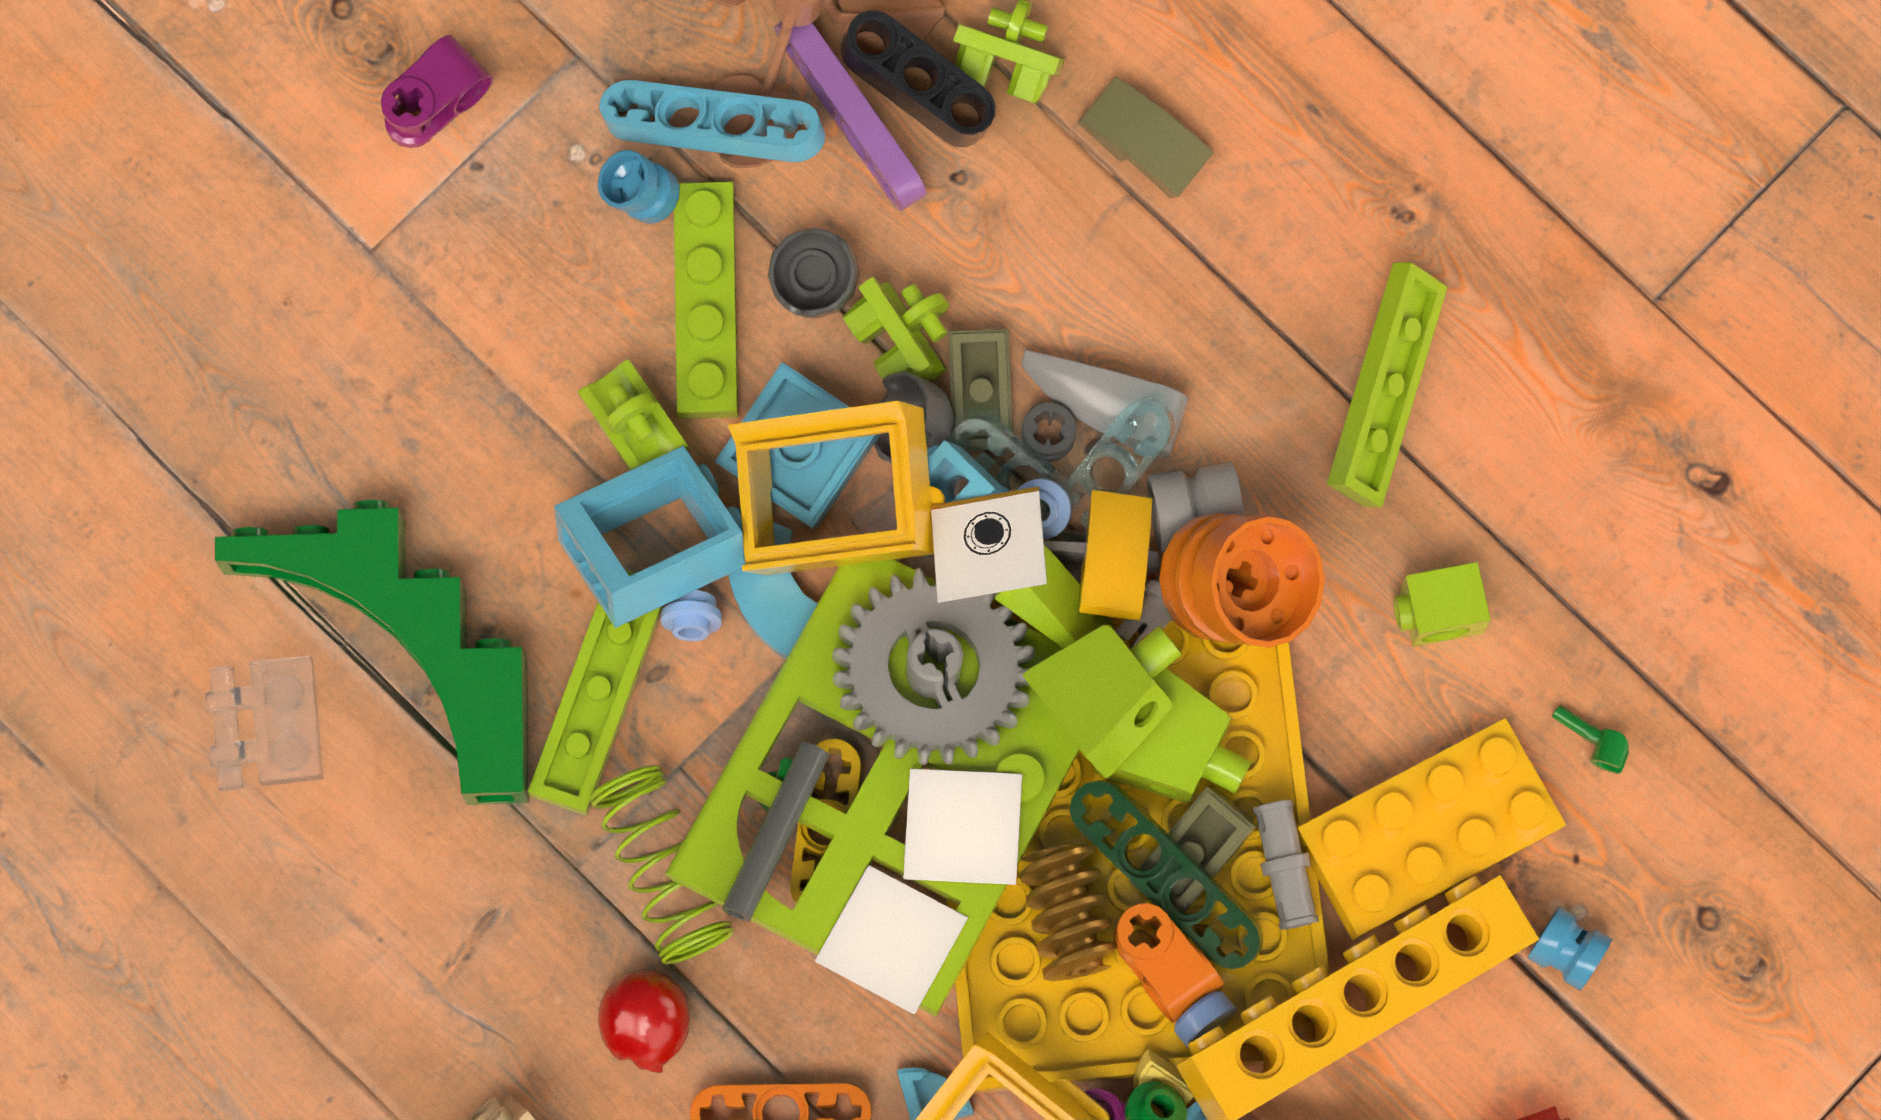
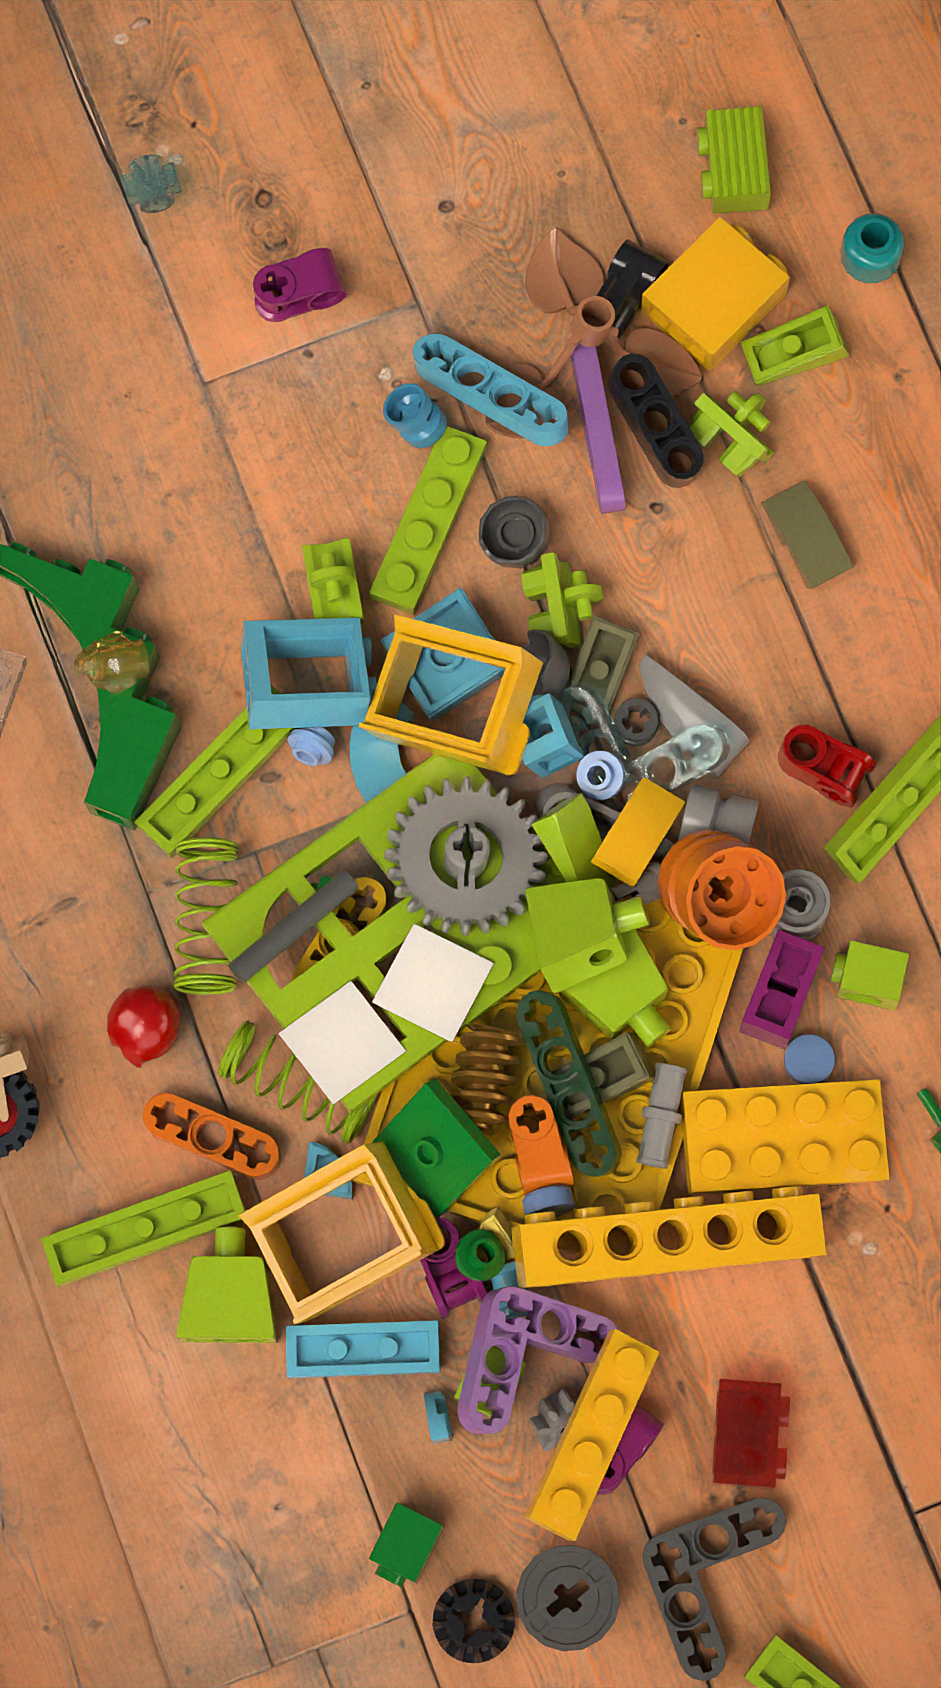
camera: 30 degrees right, 0 degrees up
(206, 44) = (151, 183): none -> clear light blue gear
(426, 617) = (113, 662): none -> clear yellow rock
(769, 1015) = (233, 1056): none -> lime piece
(988, 544) = (543, 782): white sticker -> none
(1053, 1011) = (437, 1147): none -> green plate
(1288, 389) = (828, 765): none -> red piece
(1343, 557) = (804, 906): none -> light grey wheel
(1353, 664) = (781, 989): none -> magenta brick
(1416, 730) = (809, 1059): none -> medium blue tile
(1569, 948) = (849, 1272): dark azure wheel -> none

